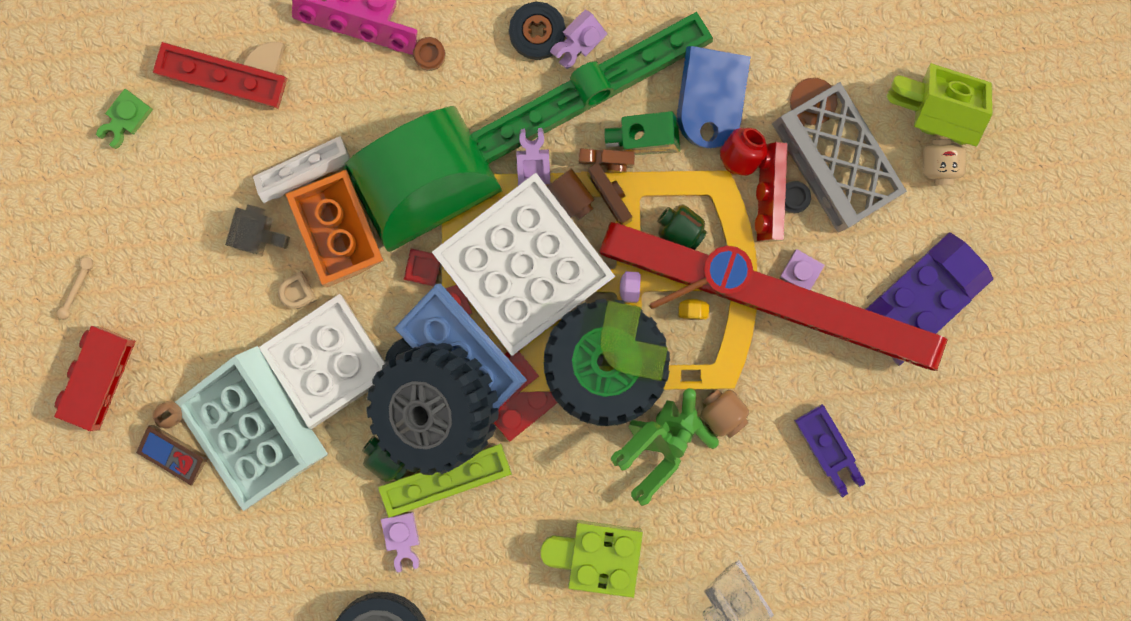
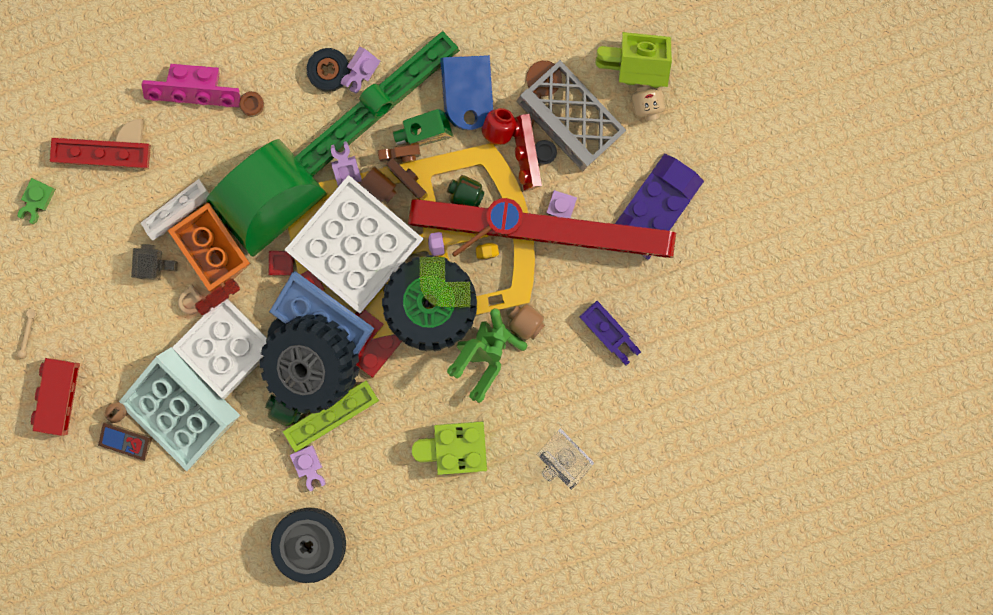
camera: 15 degrees left, 0 degrees up
(331, 294) = (217, 296): none -> clear red axle

